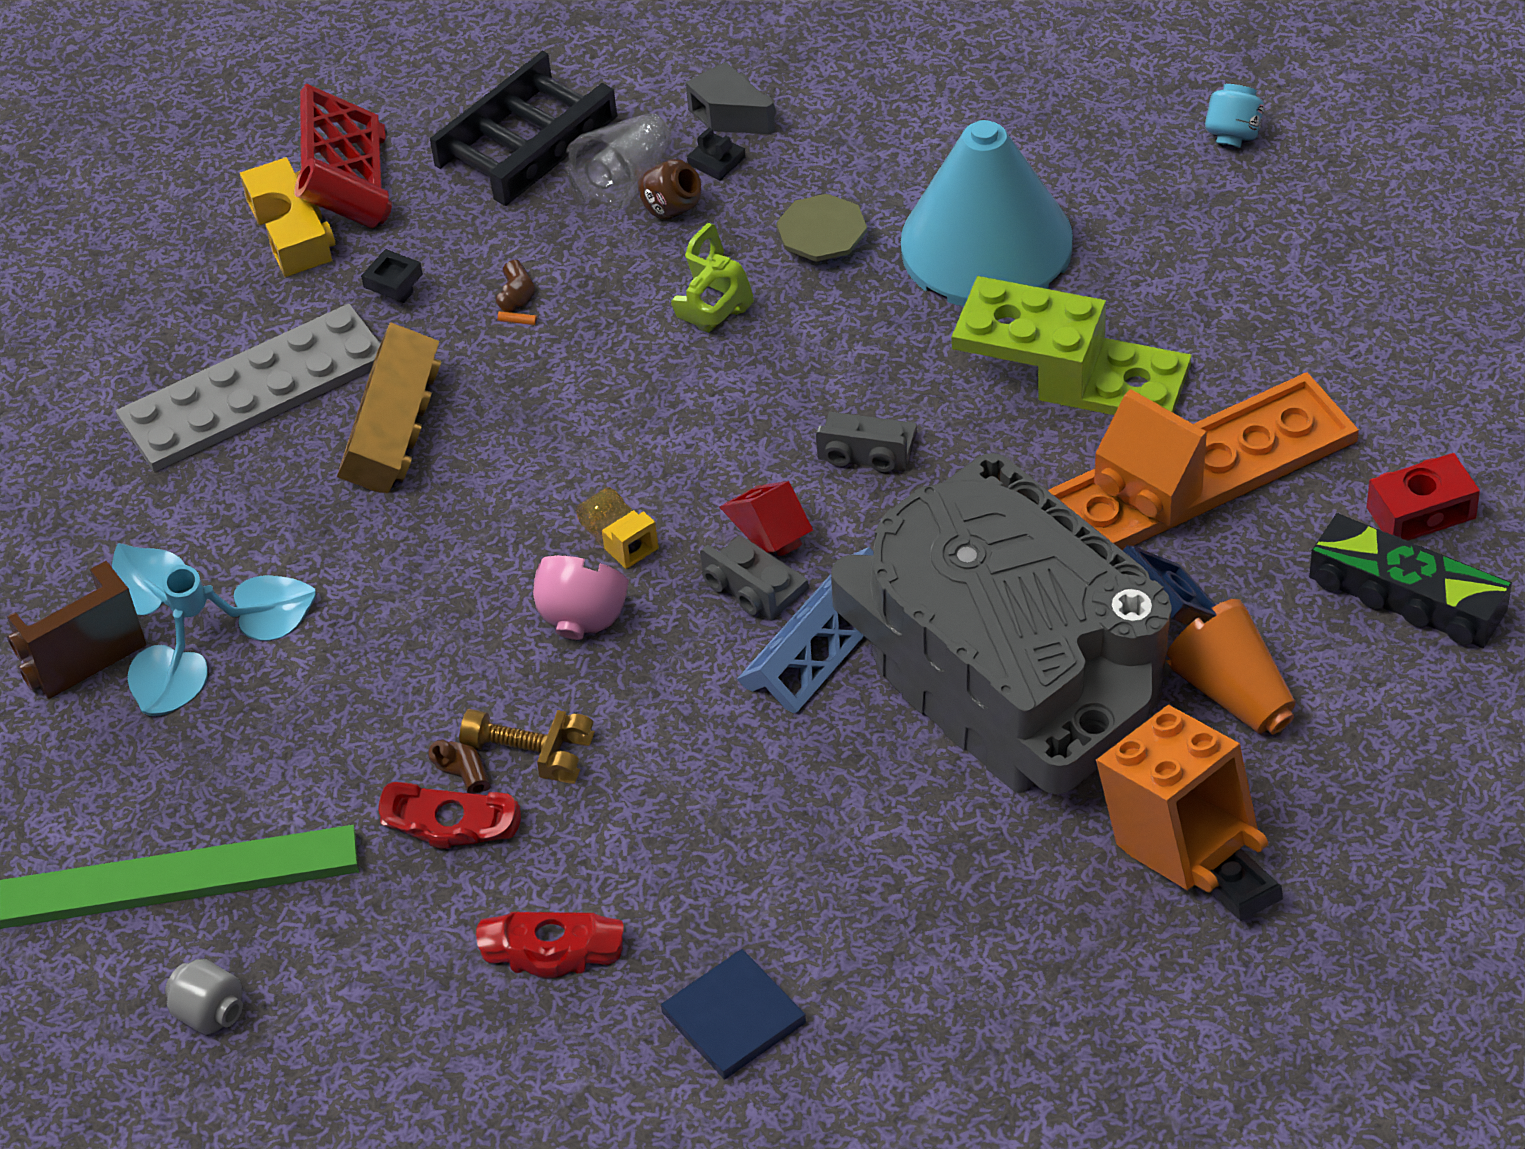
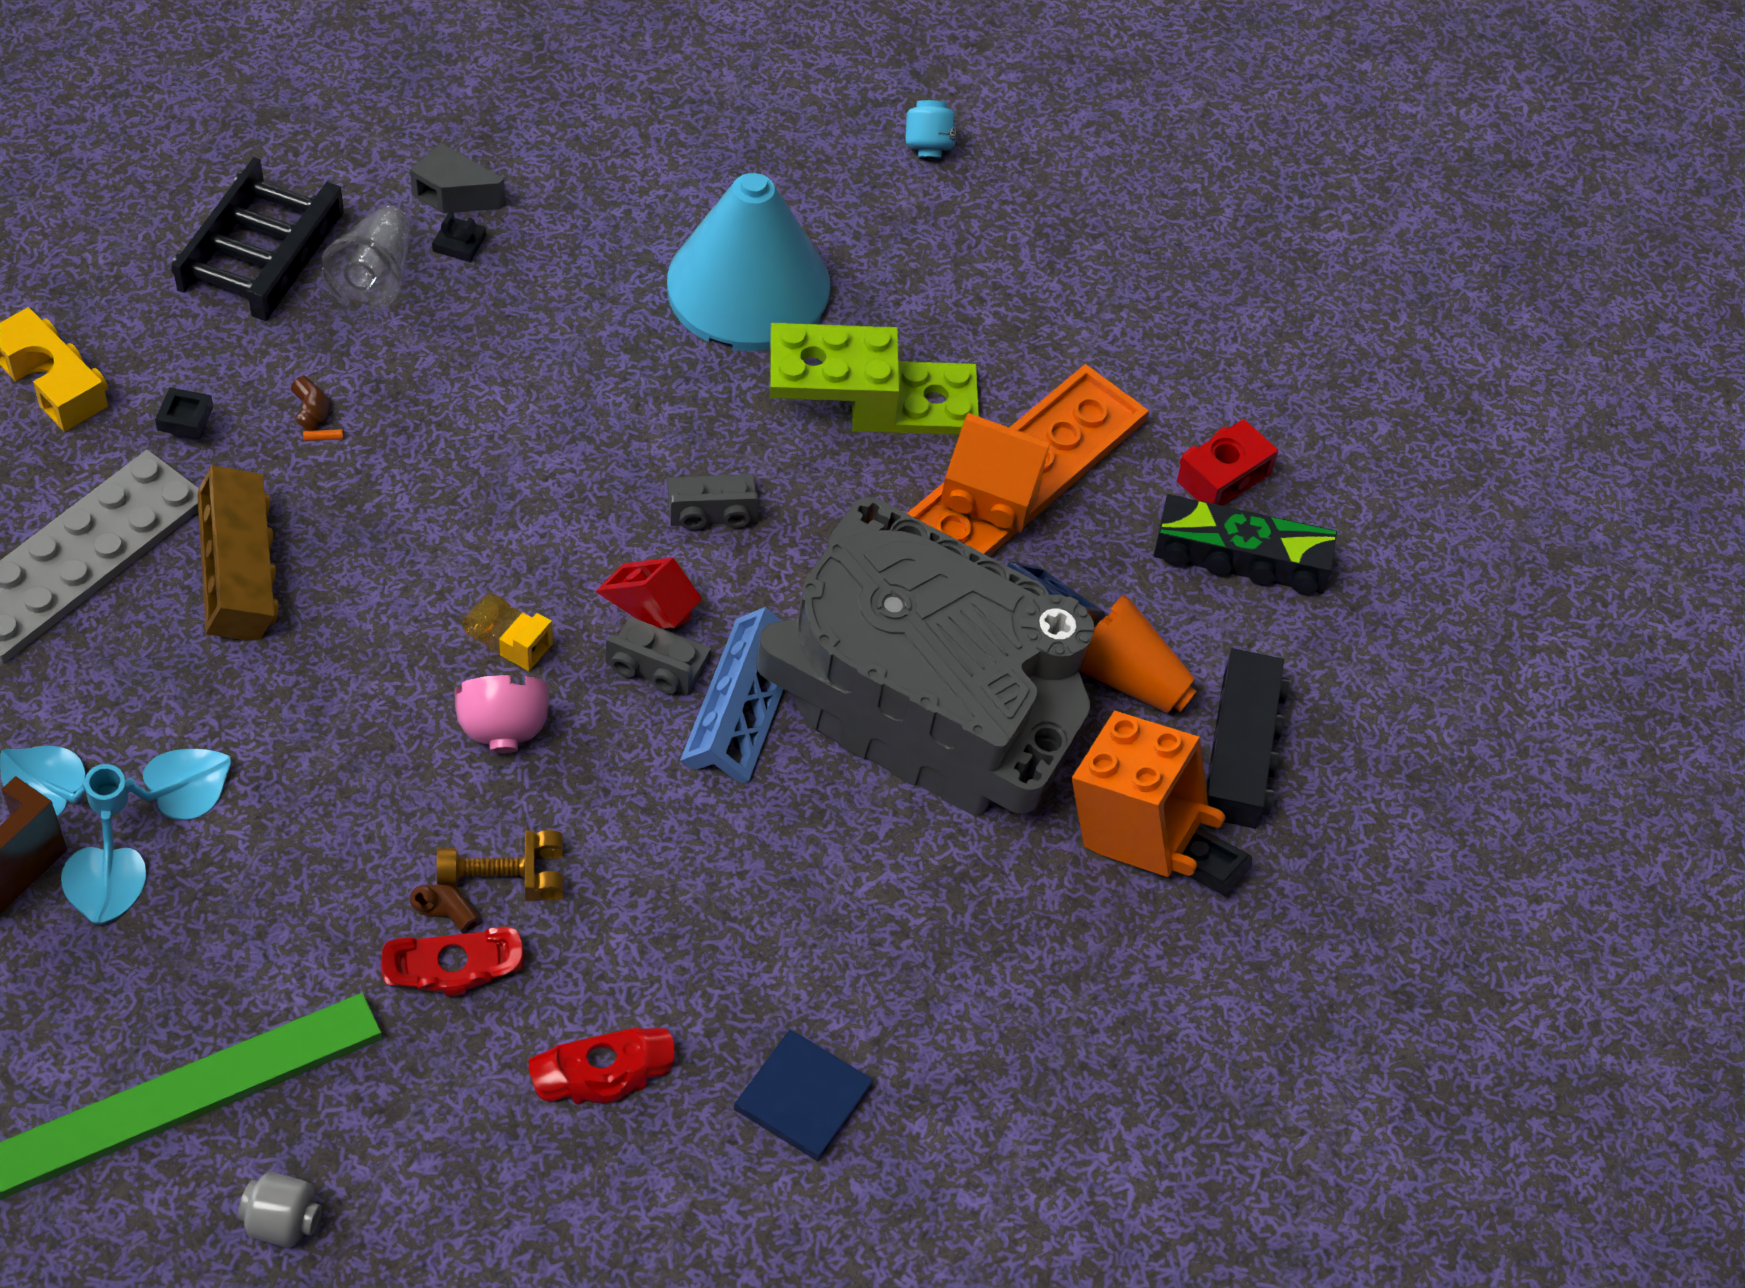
camera: 30 degrees left, 5 degrees up
(335, 184) = (87, 327): red piece -> none
(670, 189) = (433, 279): reddish brown head -> none
(718, 273) = (521, 359): lime piece -> none
(821, 227) = (592, 295): olive piece -> none
(1327, 771) = (1245, 735): none -> black brick

